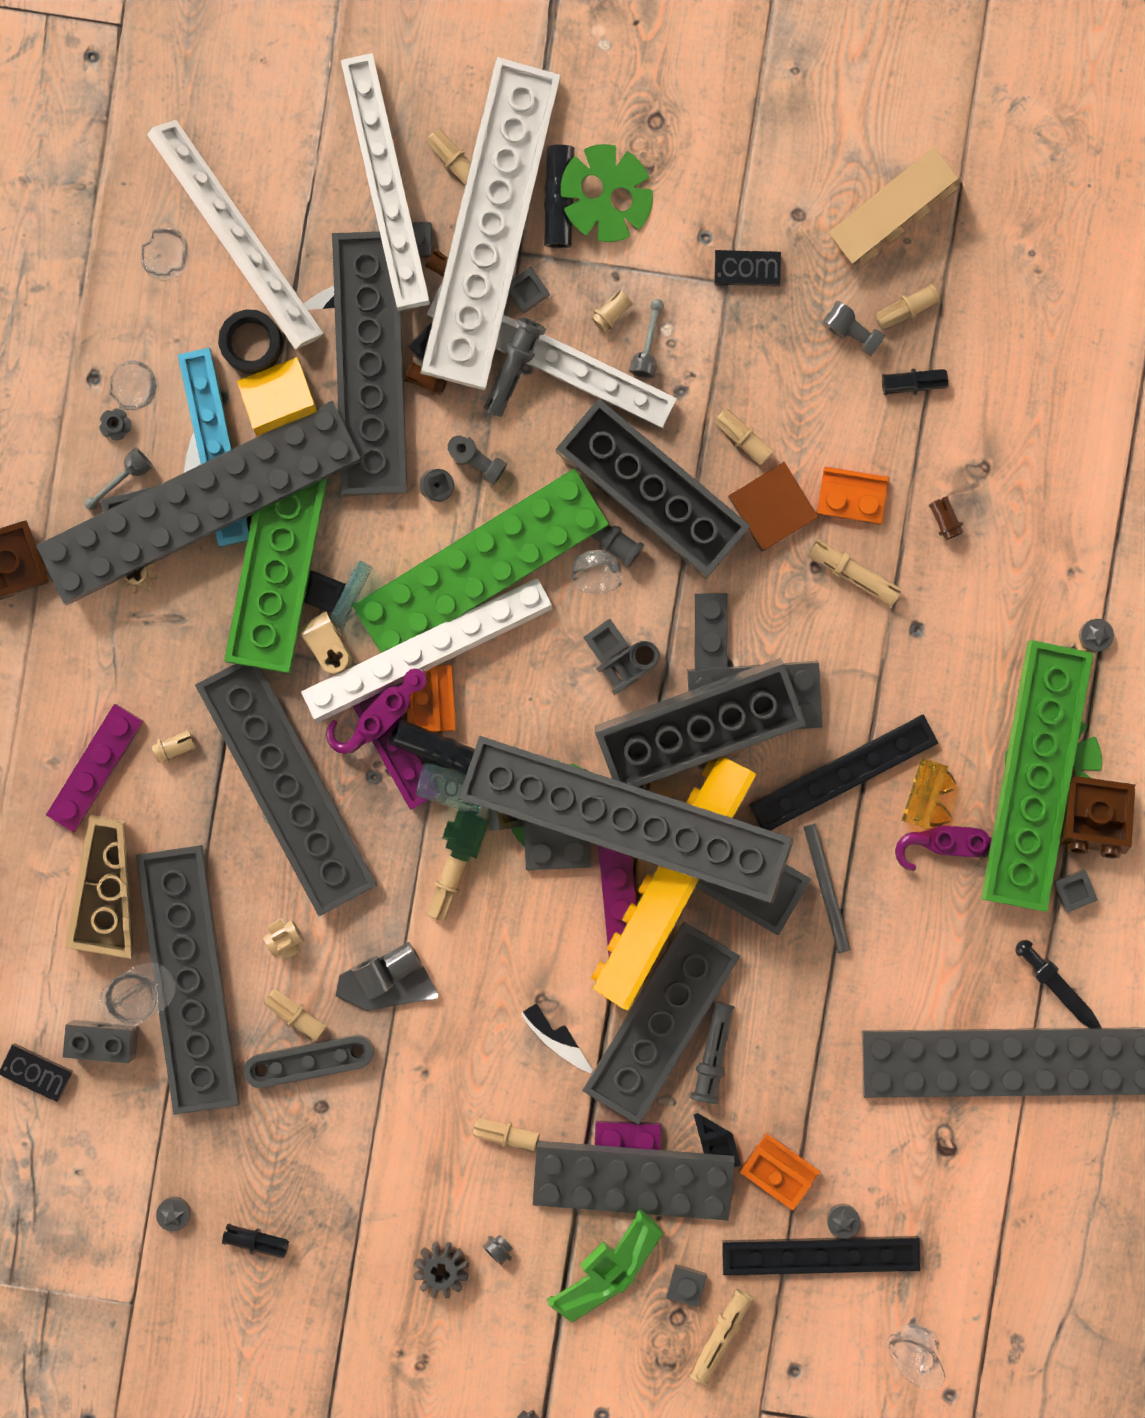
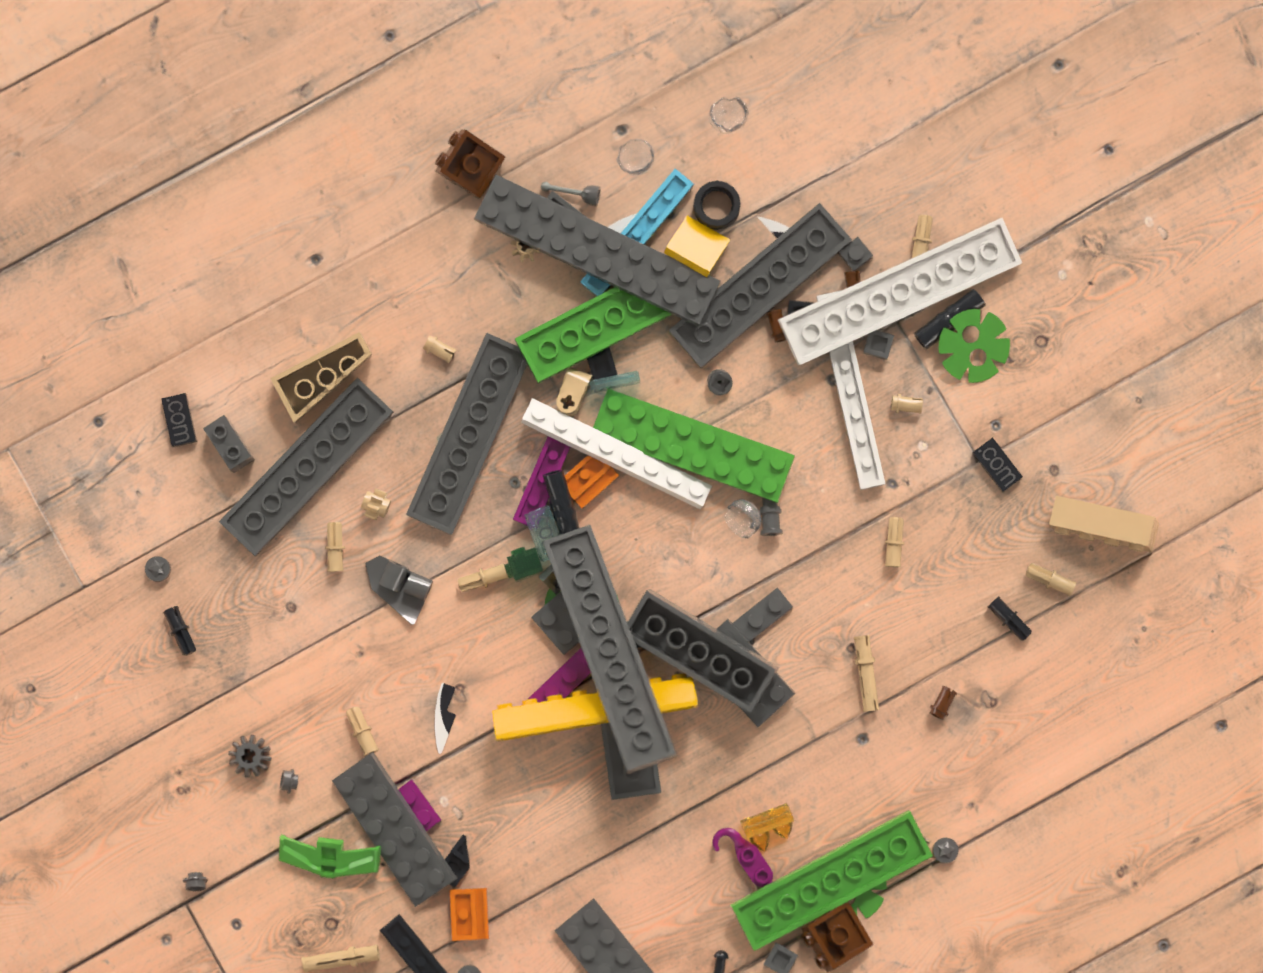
camera: 55 degrees right, 5 degrees down
(94, 767) = (389, 312): magenta plate -> none
(122, 428) = (604, 170): dark grey plate -> none
(136, 995) = (274, 443): clear piece -> none
(235, 234) = (773, 146): white plate -> none
(308, 1061) = (313, 577): dark grey plate -> none
(380, 714) = (556, 456): magenta piece -> none
(385, 182) = (874, 210): white plate -> none
(465, 452) = (753, 383): dark grey leg -> none
(519, 353) = (836, 369): dark grey pin -> none
(605, 641) = (706, 556): dark grey plate -> none
(627, 666) = (701, 581): dark grey piece -> none
(644, 362) = (891, 448): hinge -> none
(652, 488) = (819, 512): dark grey brick -> none
(661, 1023) = (502, 771): dark grey plate -> none
(686, 1285) = (355, 913): dark grey plate -> none
(710, 1068) = (498, 823): dark grey pin -> none
(773, 506) = (867, 593): dark orange tile -> none
(826, 888) = (663, 807): dark grey bar -> none
(842, 323) = (1009, 547): dark grey leg -> none
(844, 773) = (741, 763): black tile -> none
(852, 495) = (911, 635): orange plate -> none

